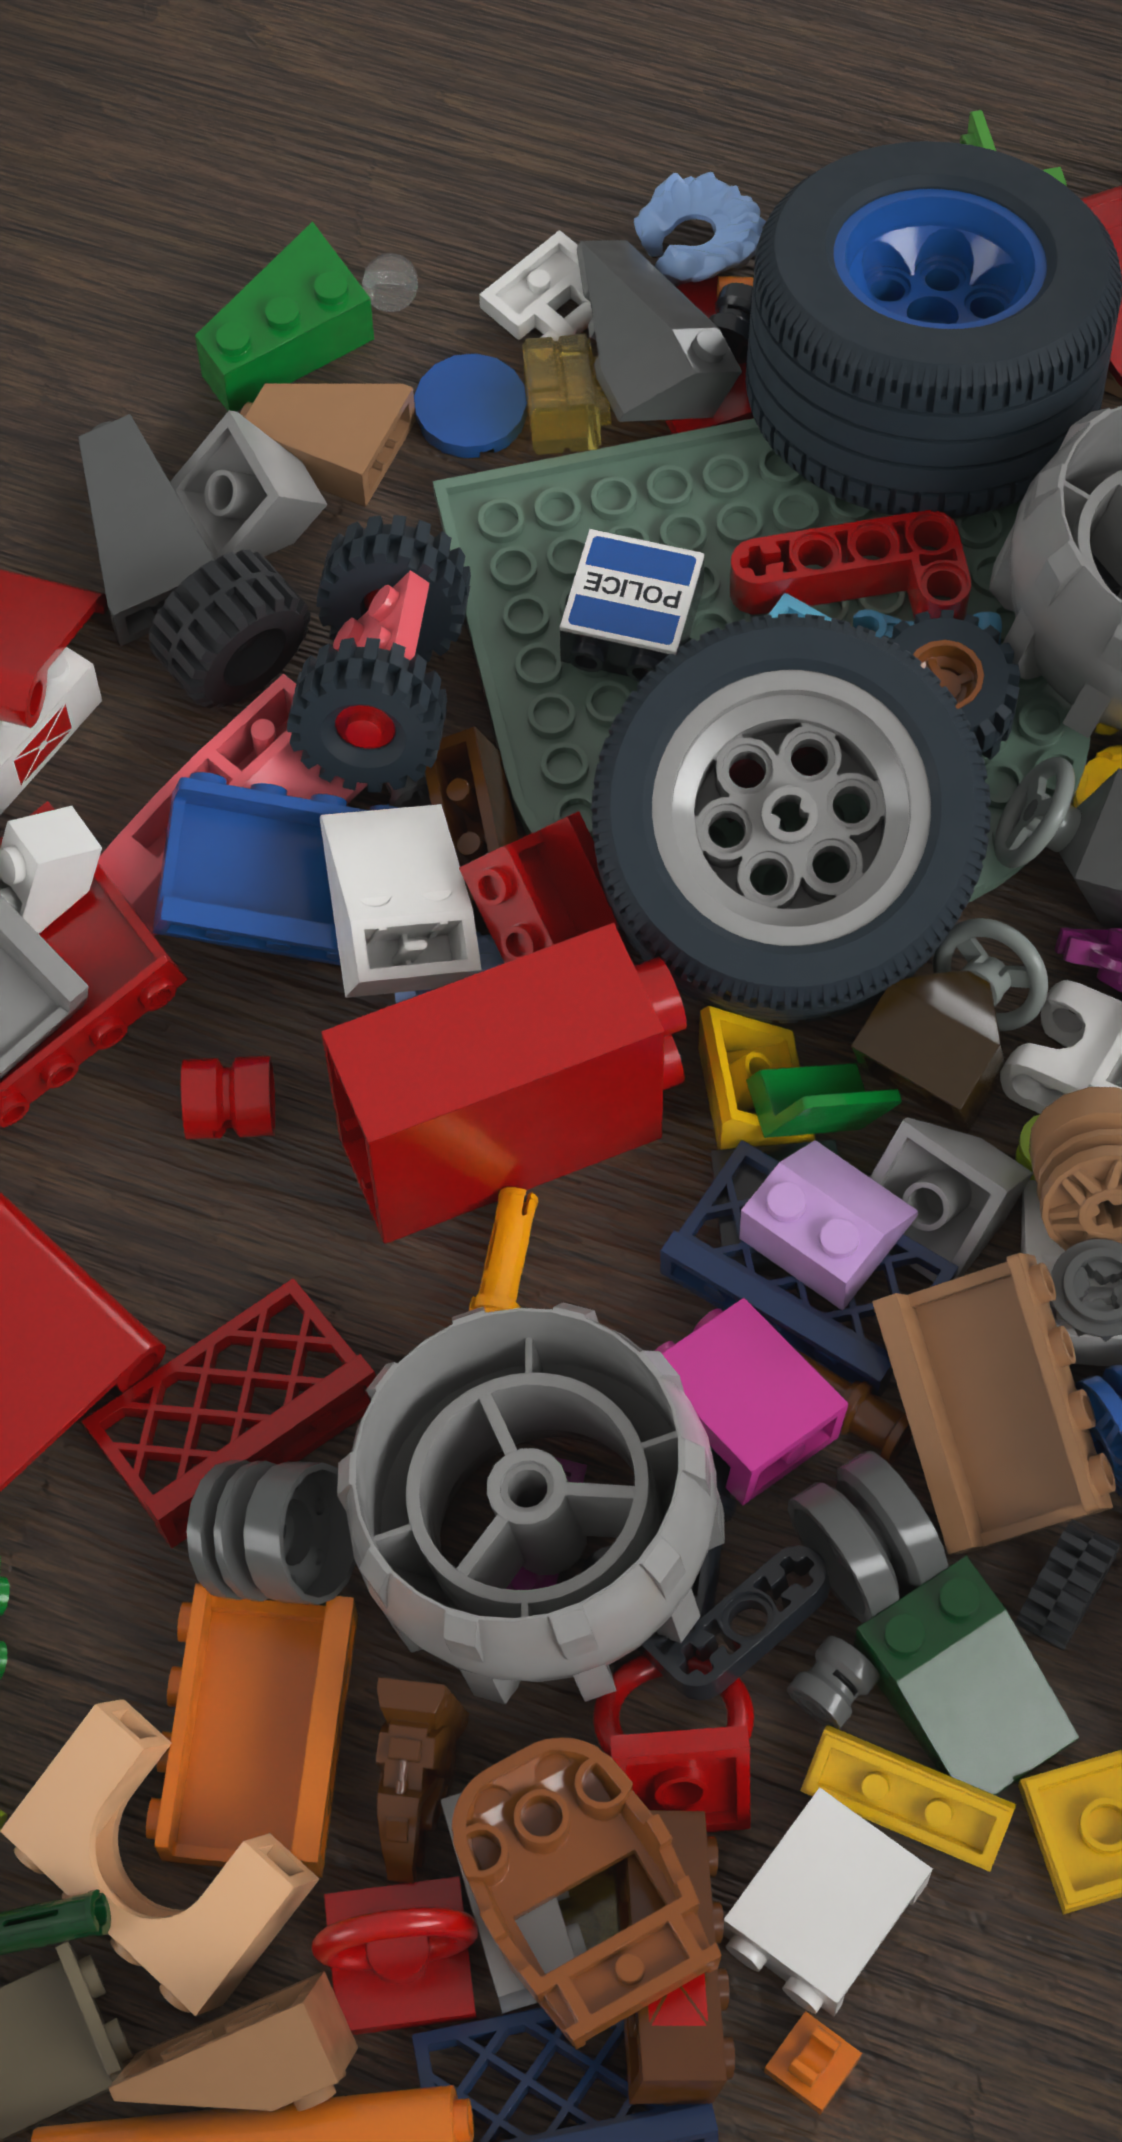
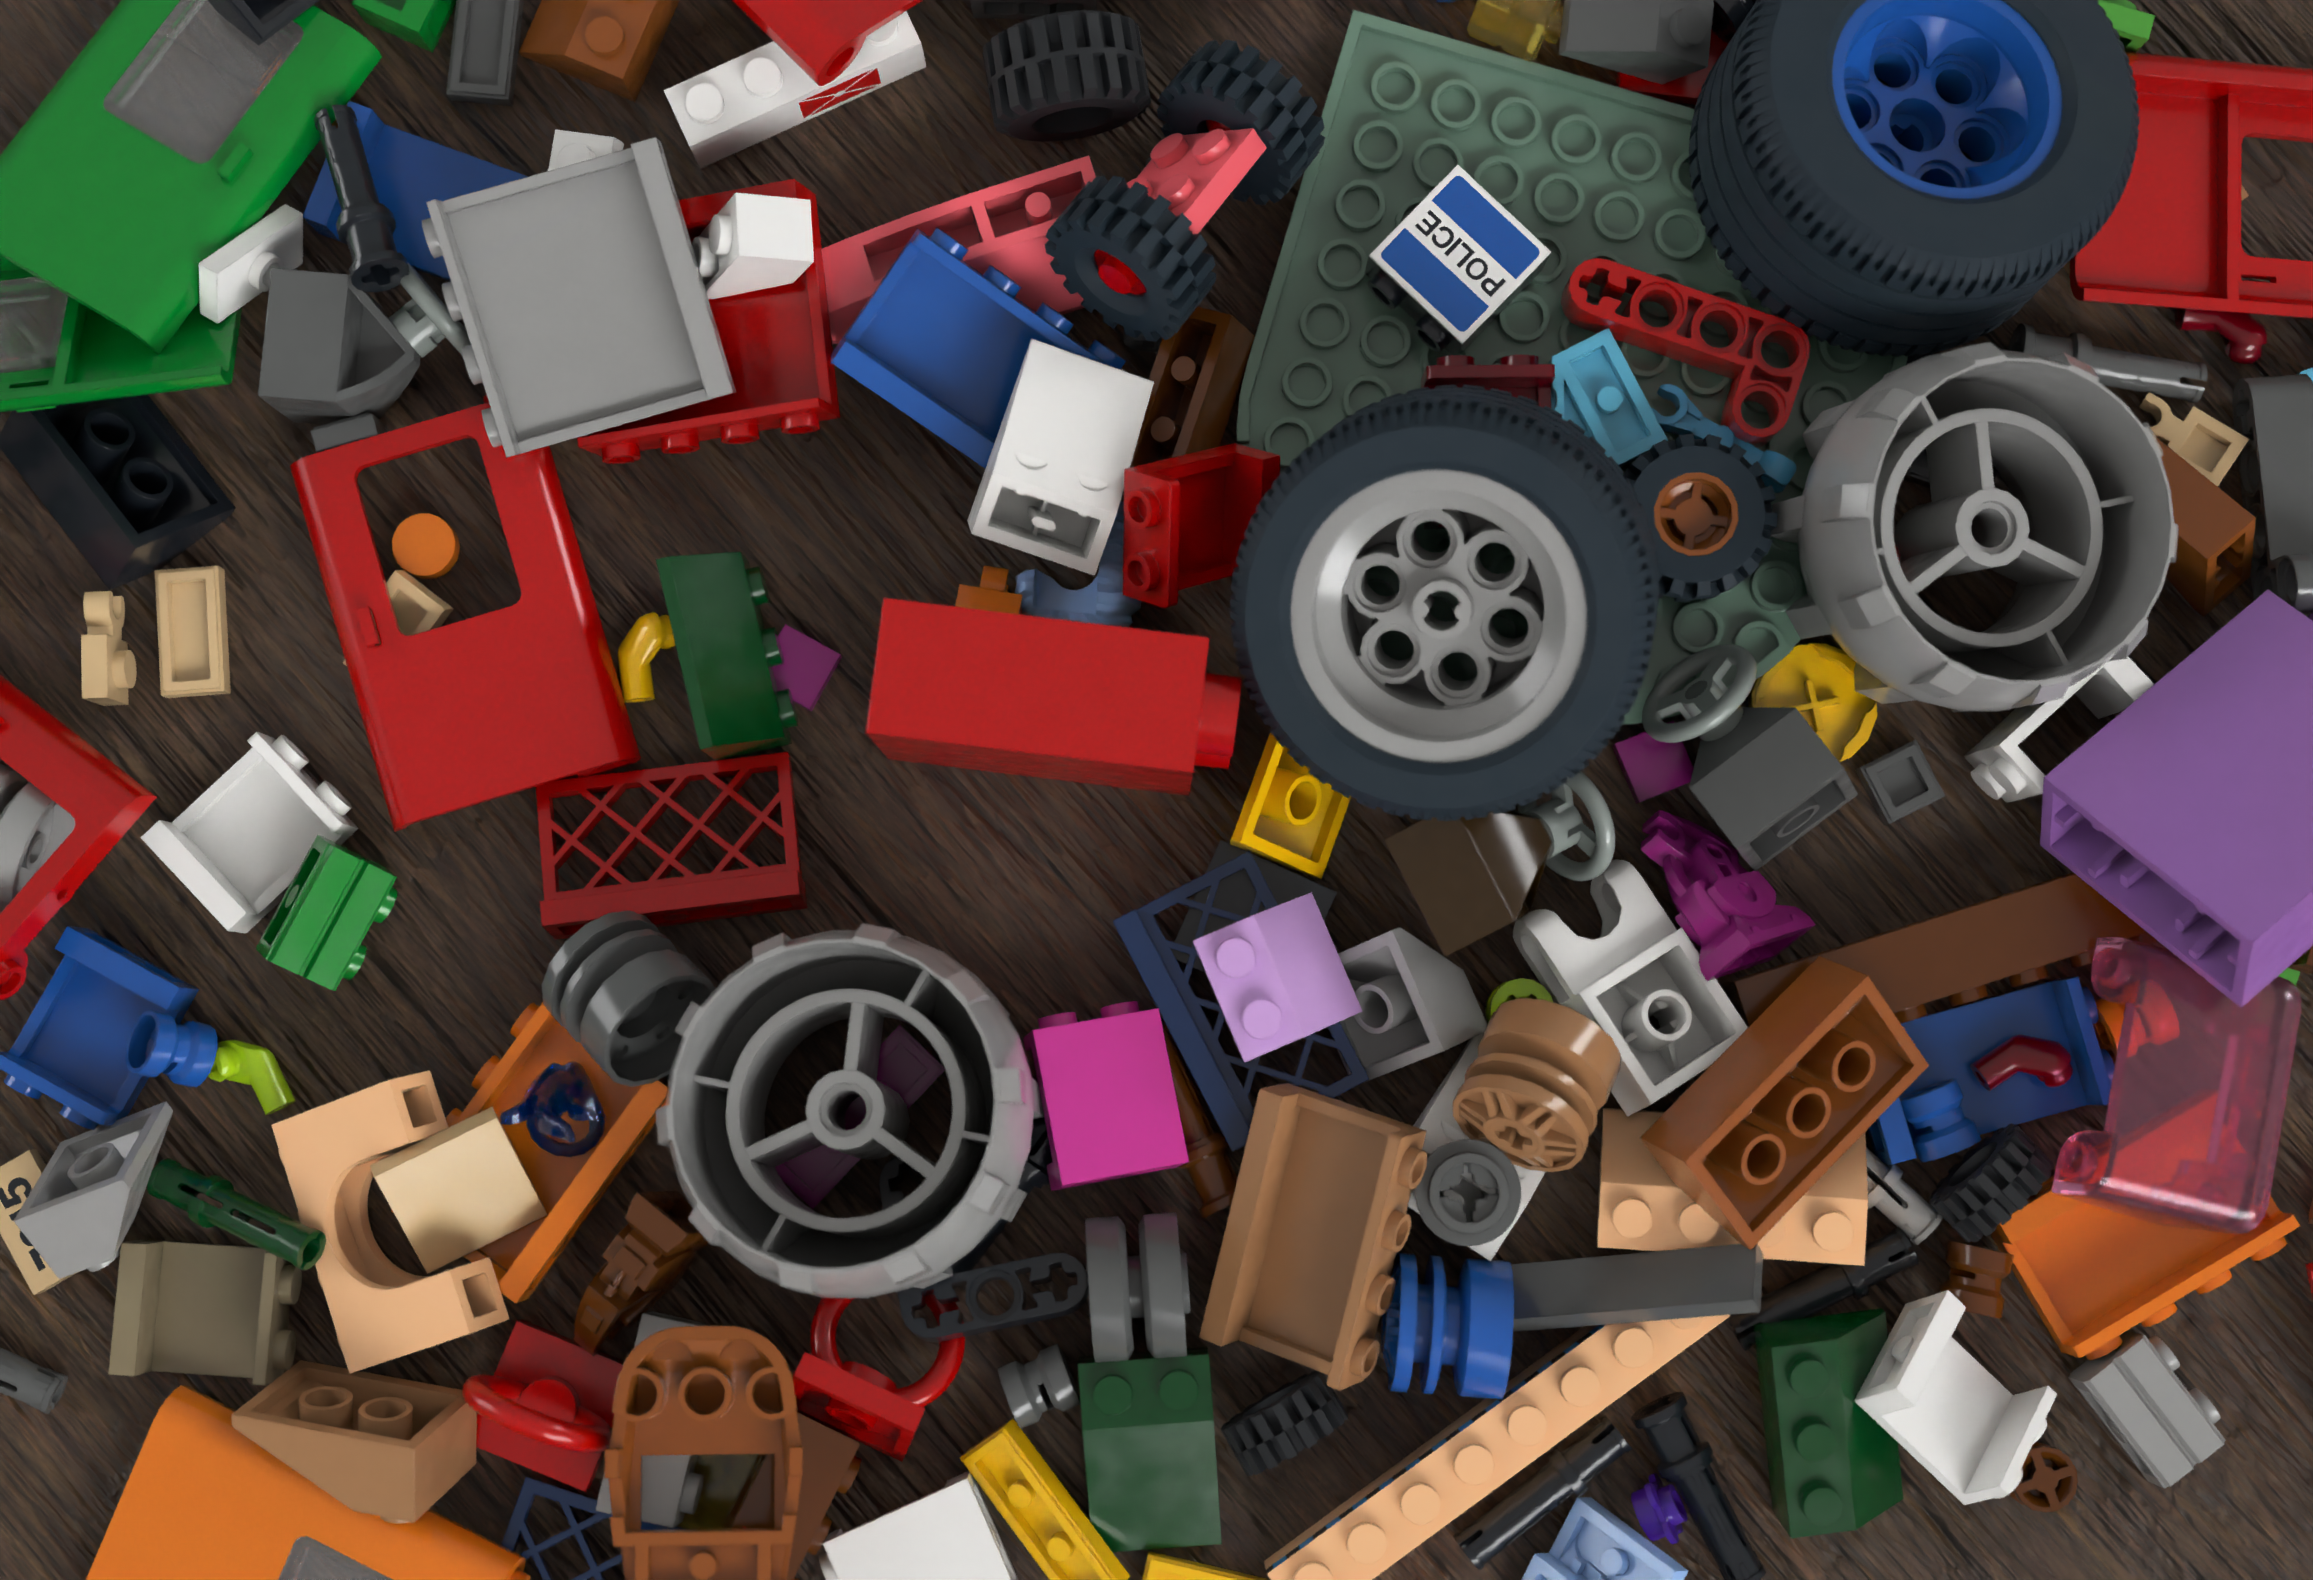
camera: 25 degrees right, 20 degrees up
(113, 1262) = (638, 651): none -> yellow arm
(195, 1217) = (727, 653): none -> dark green slope
(208, 1785) = (458, 1190): none -> tan tile
(228, 1097) = (809, 547): red wheel -> none
(256, 1655) = (548, 1097): none -> clear blue piece
(262, 1209) = (805, 667): none -> magenta tile
(506, 1251) = (973, 849): light orange pin -> none
(816, 1100) = (1334, 851): green panel -> none
(1032, 905) = (1652, 765): none -> magenta tile

